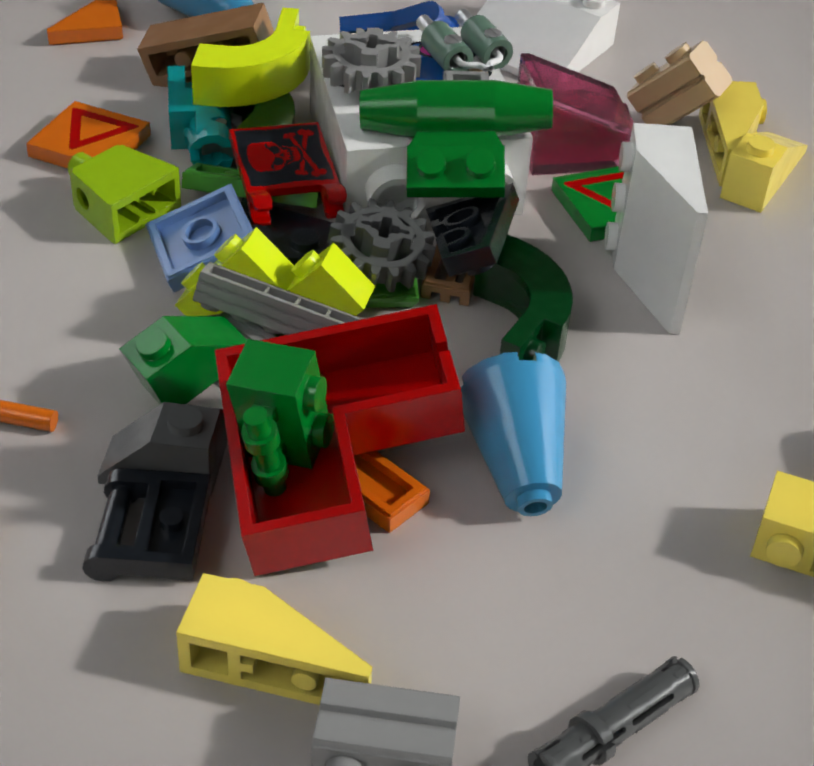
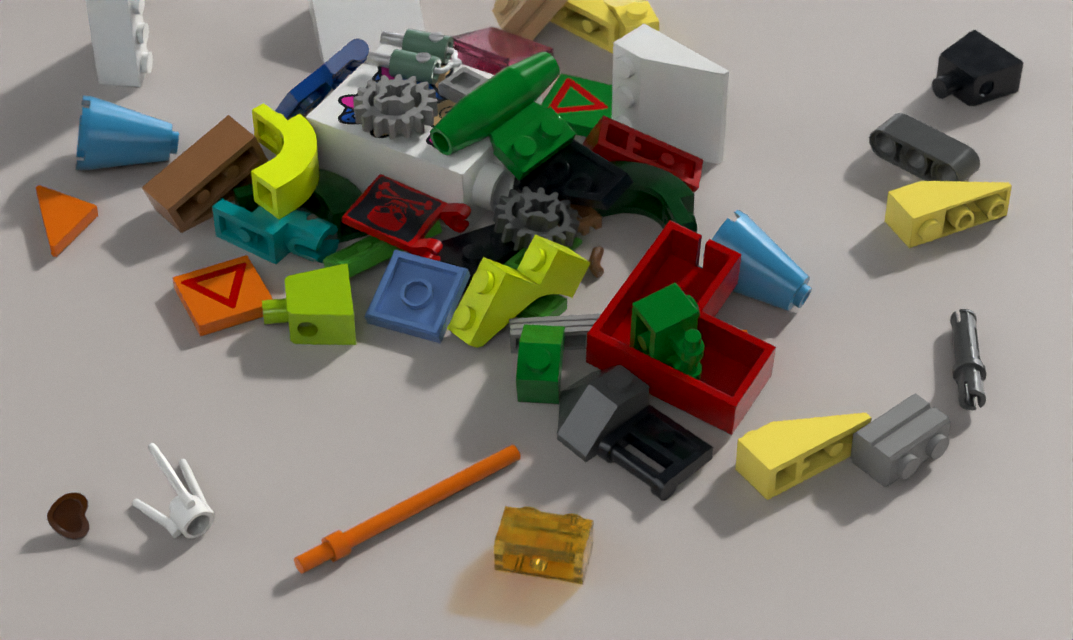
camera: 45 degrees left, 0 degrees up
(263, 303) = (558, 294): light grey piece -> none
(597, 285) = (622, 143): none -> red slope

